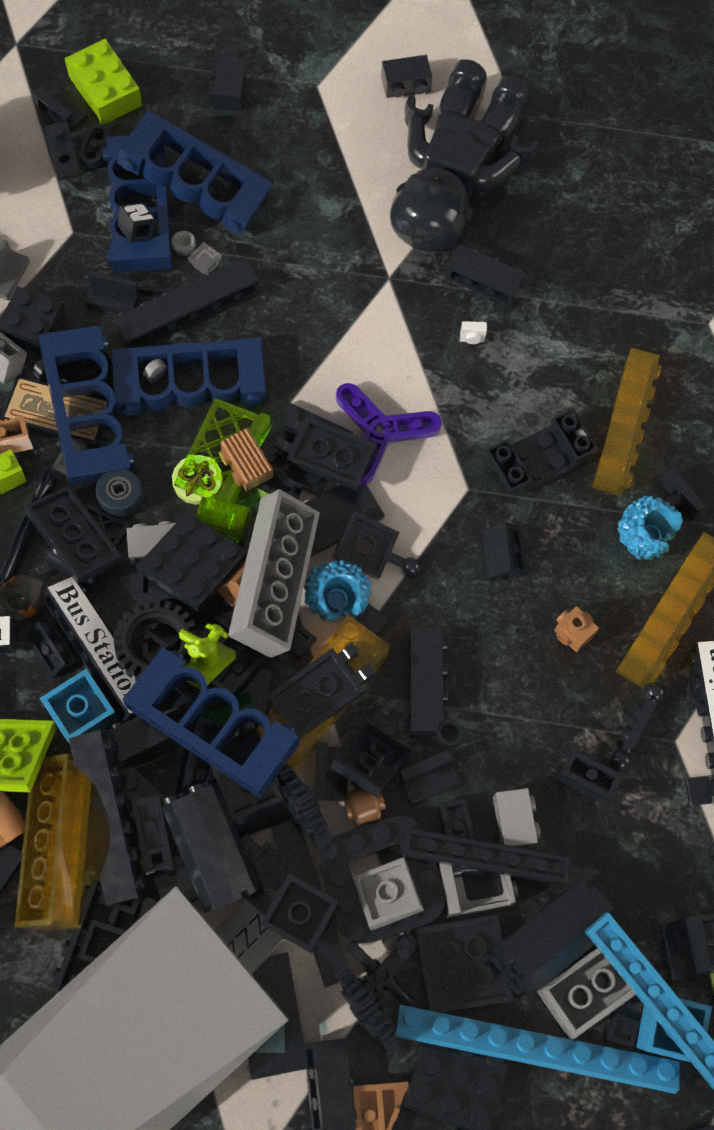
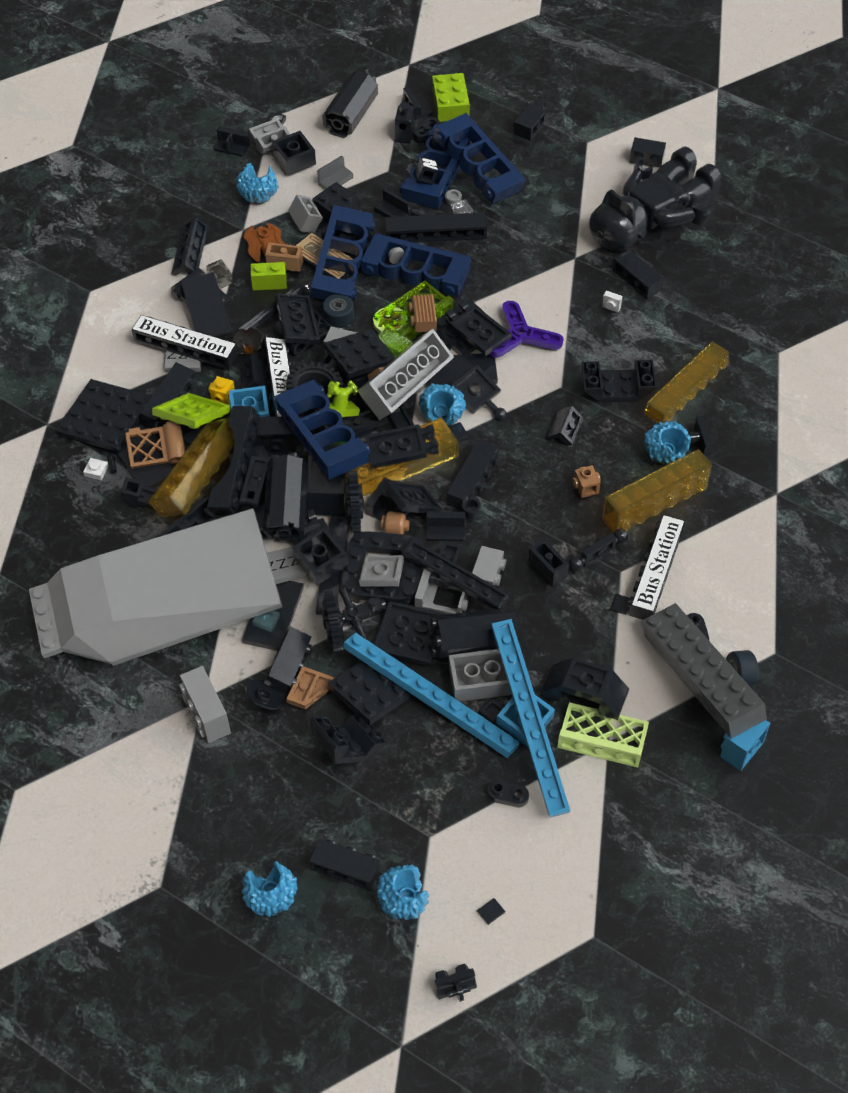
camera: 30 degrees right, 15 degrees down
(24, 695) = (220, 390): none -> yellow brick

